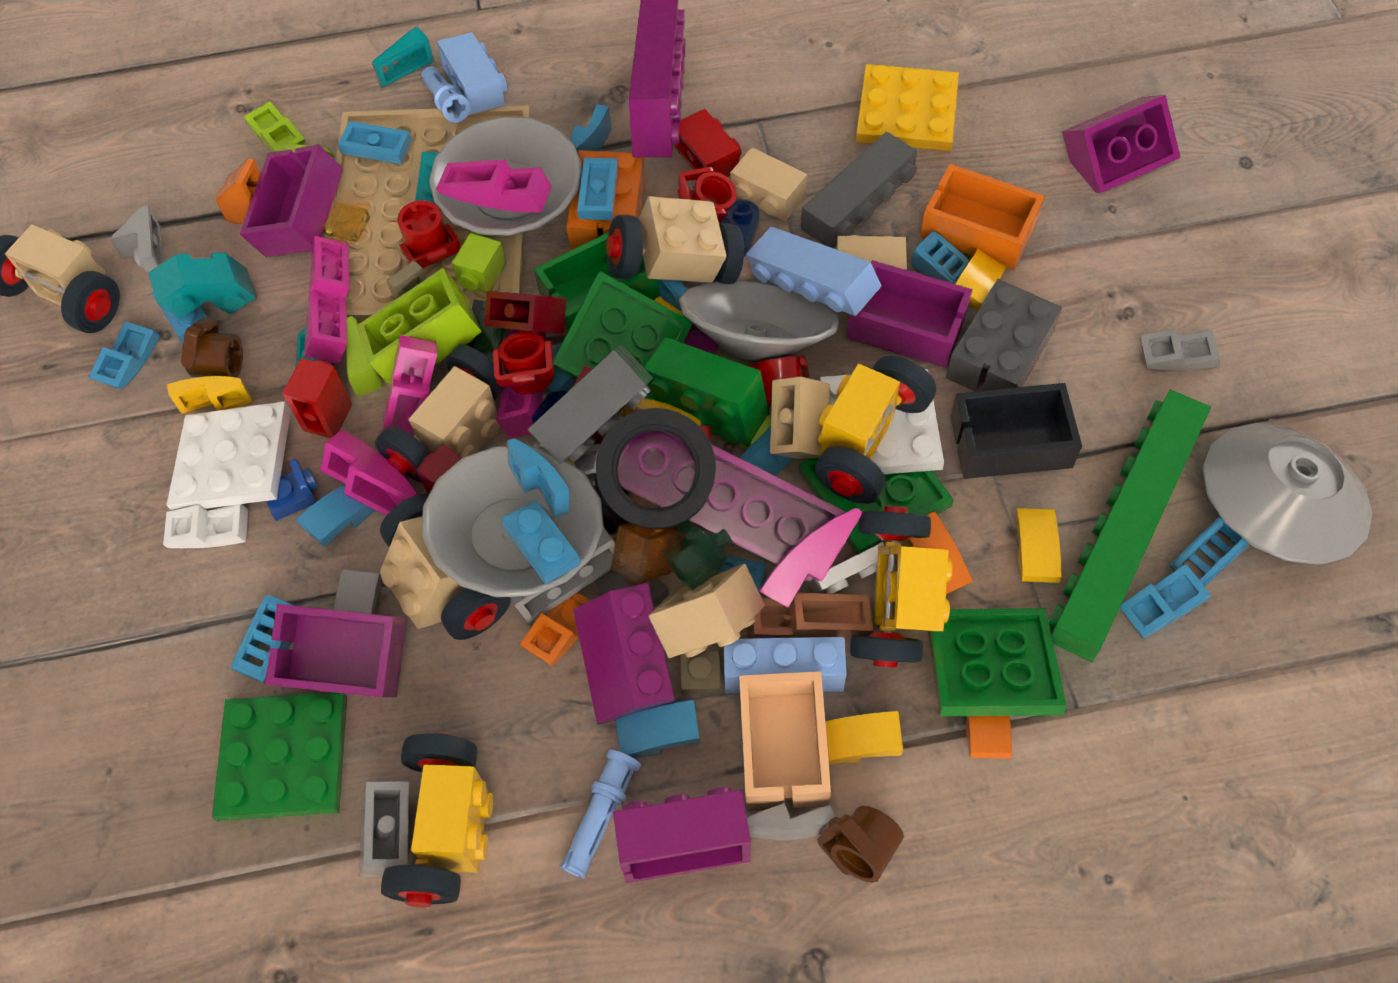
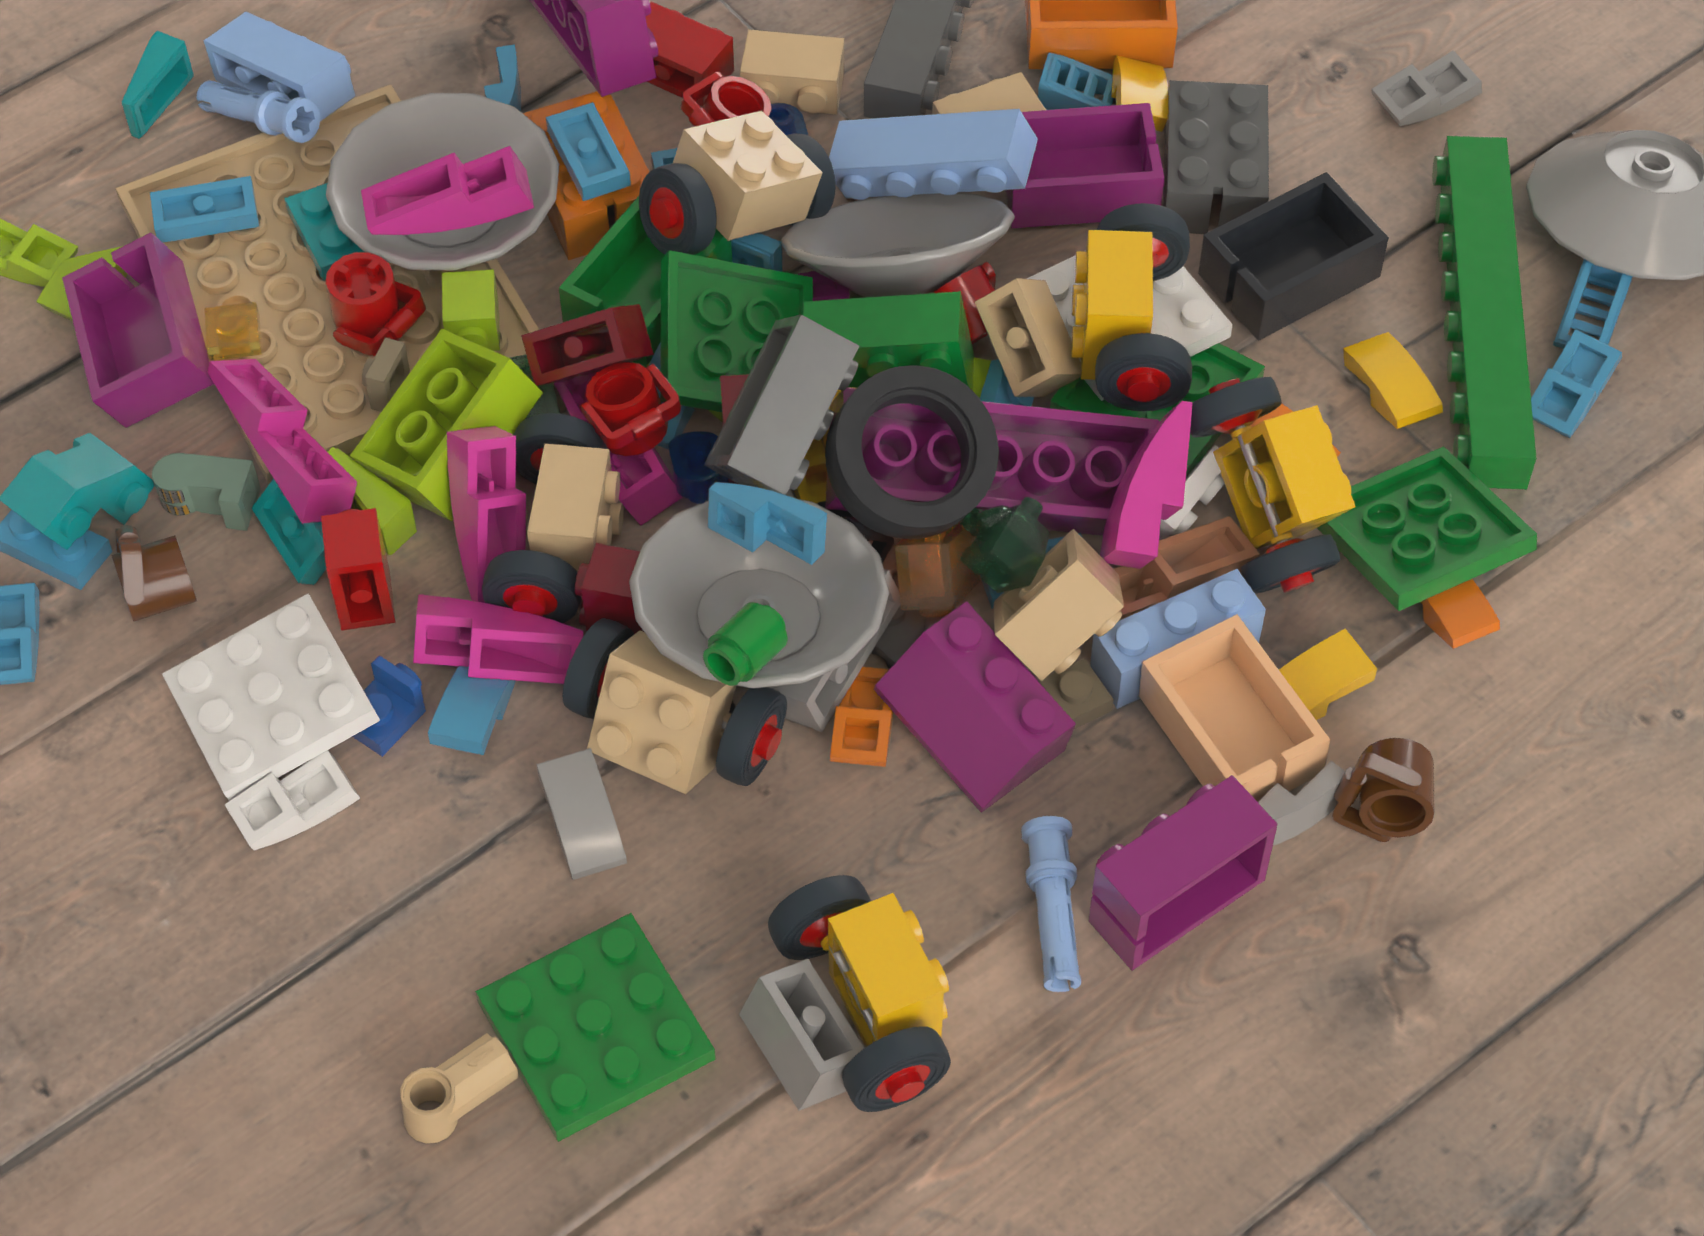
camera: 30 degrees left, 5 degrees down
(174, 755) = (458, 1085): none -> tan piece
(208, 390) = (191, 623): yellow slope -> none
(238, 191) = (47, 352): orange slope -> none
(256, 633) = (480, 860): dark azure slope -> none
(279, 308) = (208, 486): none -> sand green leg
(337, 651) = (604, 857): magenta piece -> none
(465, 556) = (745, 644): none -> green brick
(541, 541) = (819, 595): dark azure plate -> none
(658, 728) = (1067, 776): dark azure slope -> none

